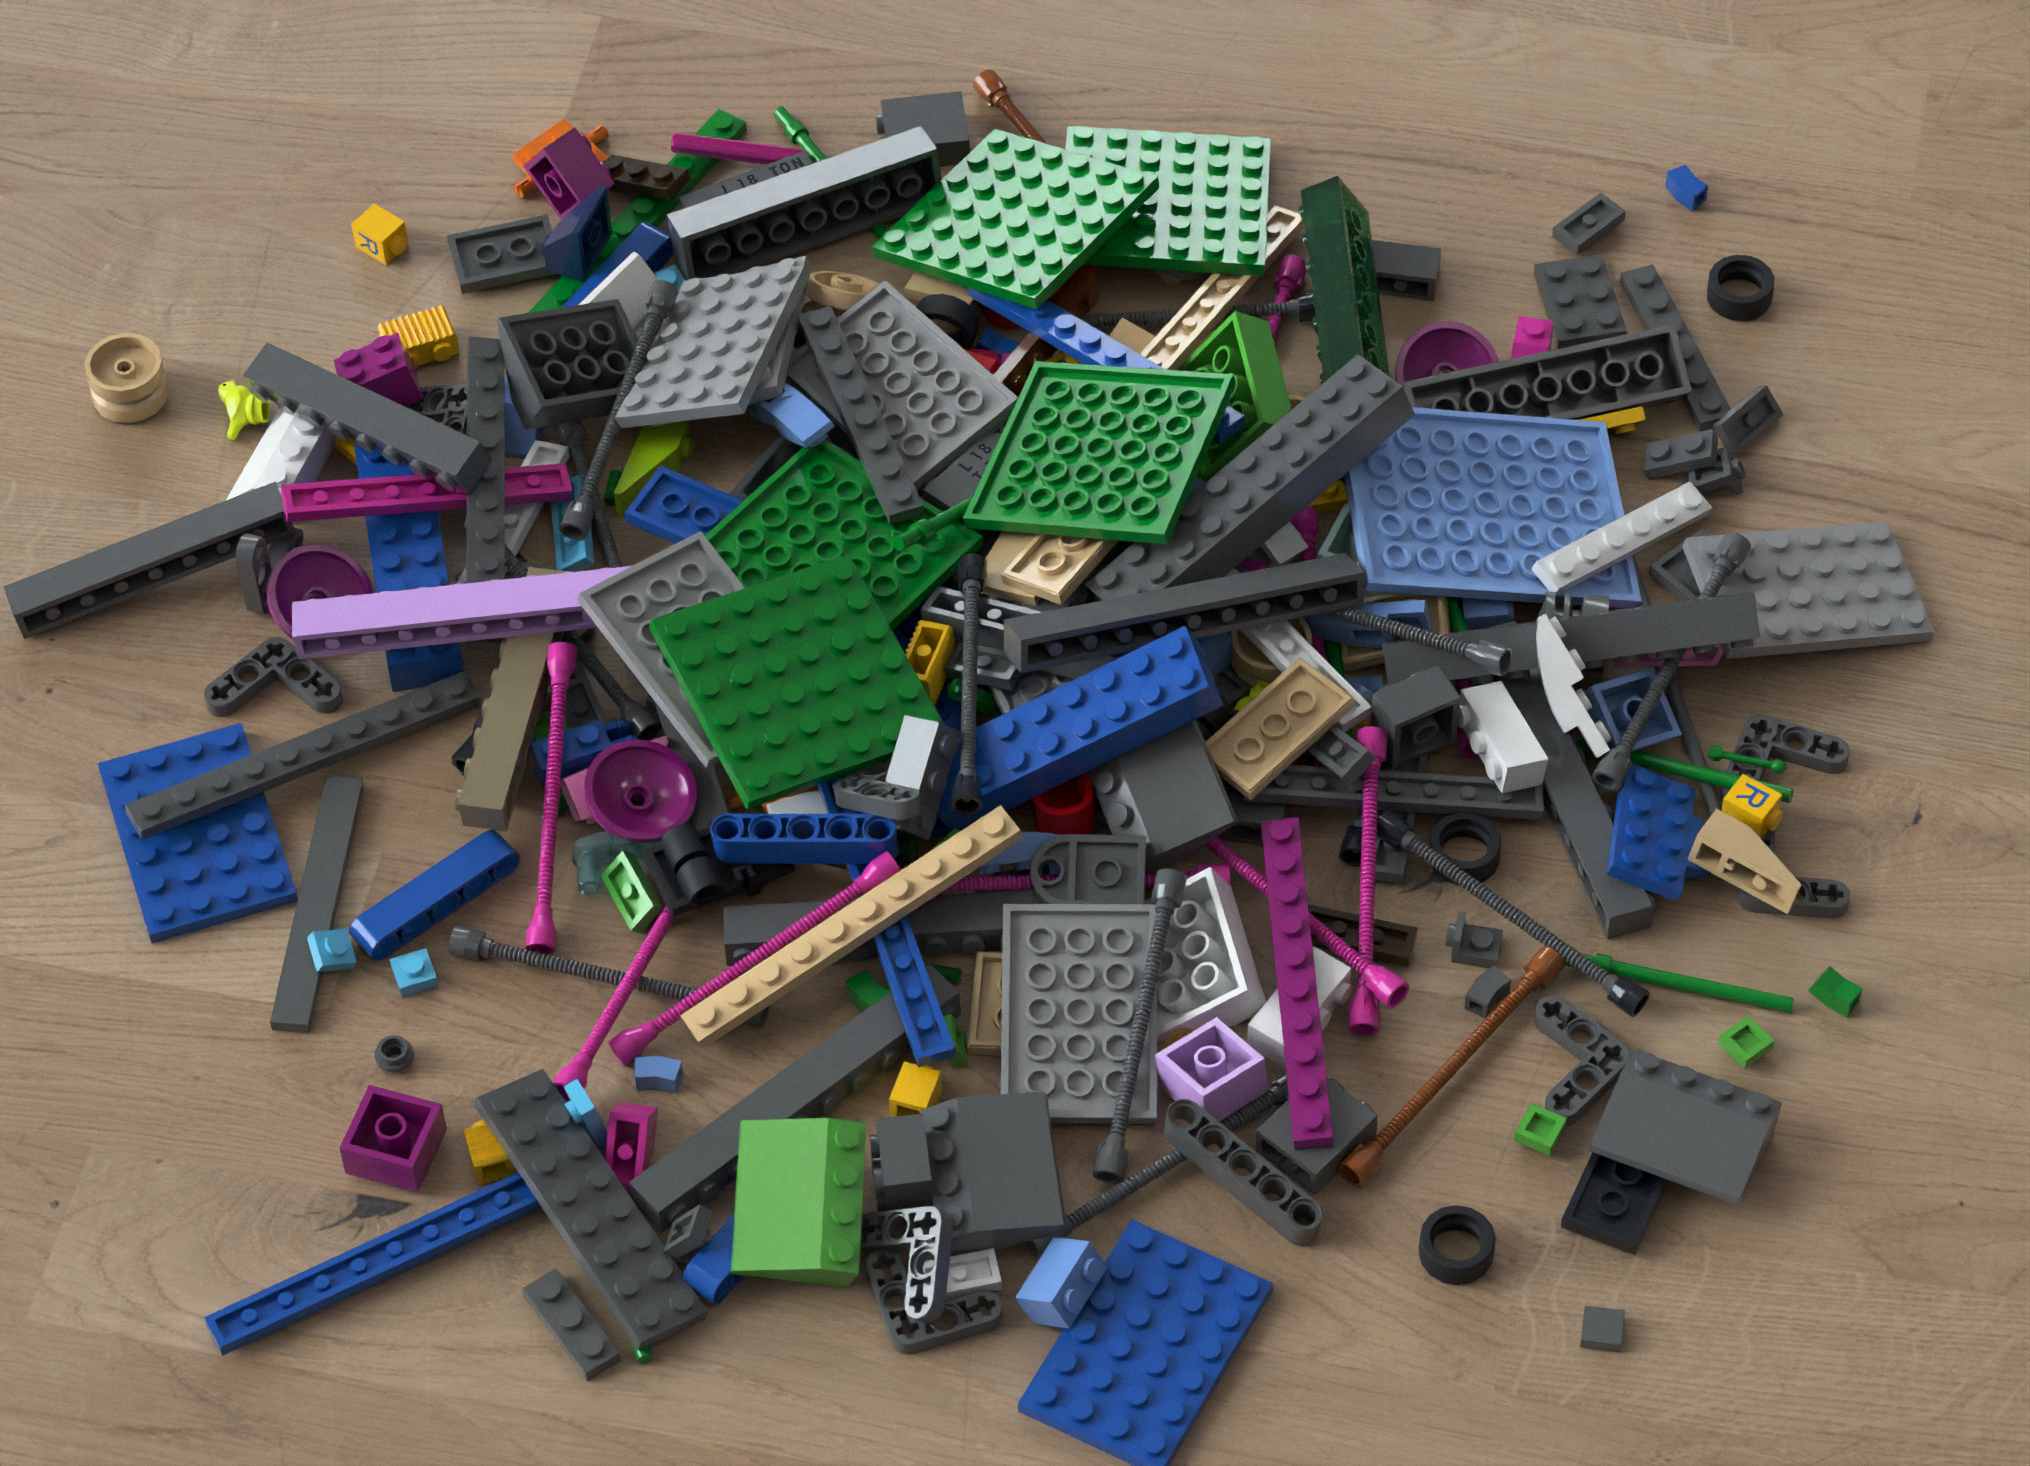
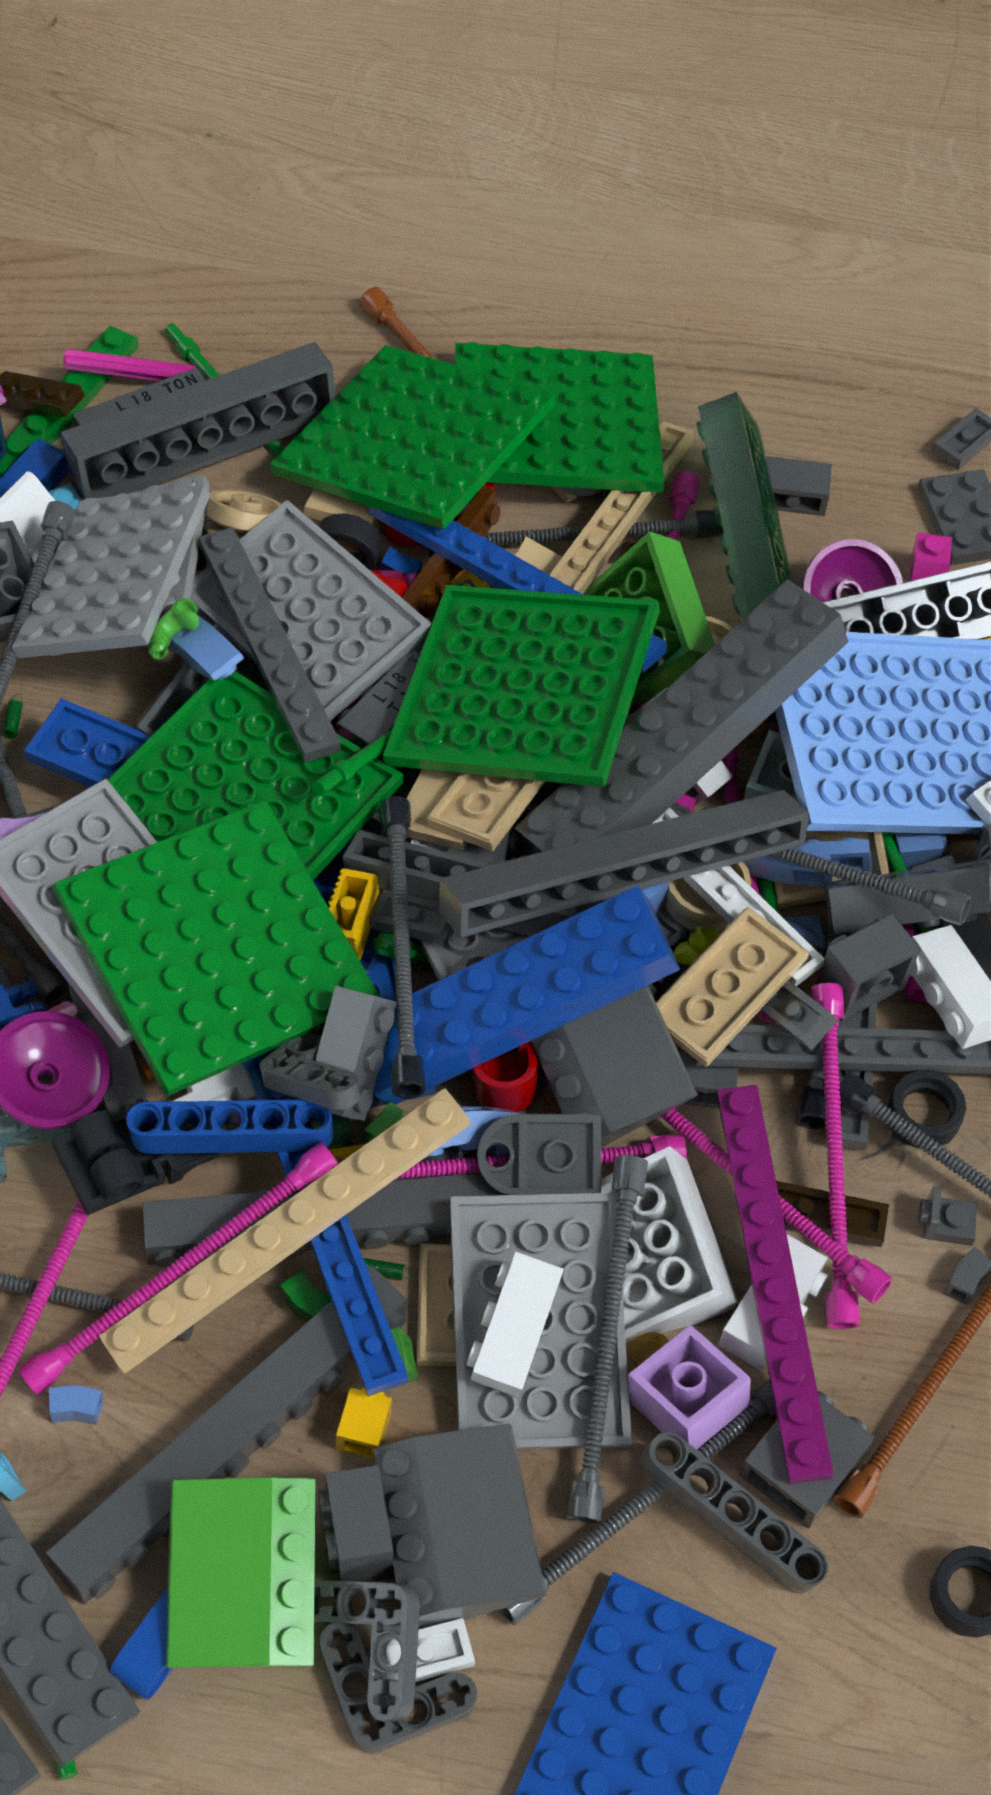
camera: 10 degrees left, 5 degrees up
(630, 1140) = (46, 1495): dark pink slope -> none
(631, 891) = (41, 1182): bright green plate -> none
(654, 448) = (53, 679): lime slope -> none
(688, 1235) = (115, 1618): dark grey bracket -> none
(775, 388) = (179, 617): none -> bright green piece
(938, 114) = (329, 329): dark grey brick -> none
(1054, 1009) = (514, 1323): none -> white brick
(1061, 1282) = (543, 1662): medium blue brick -> none

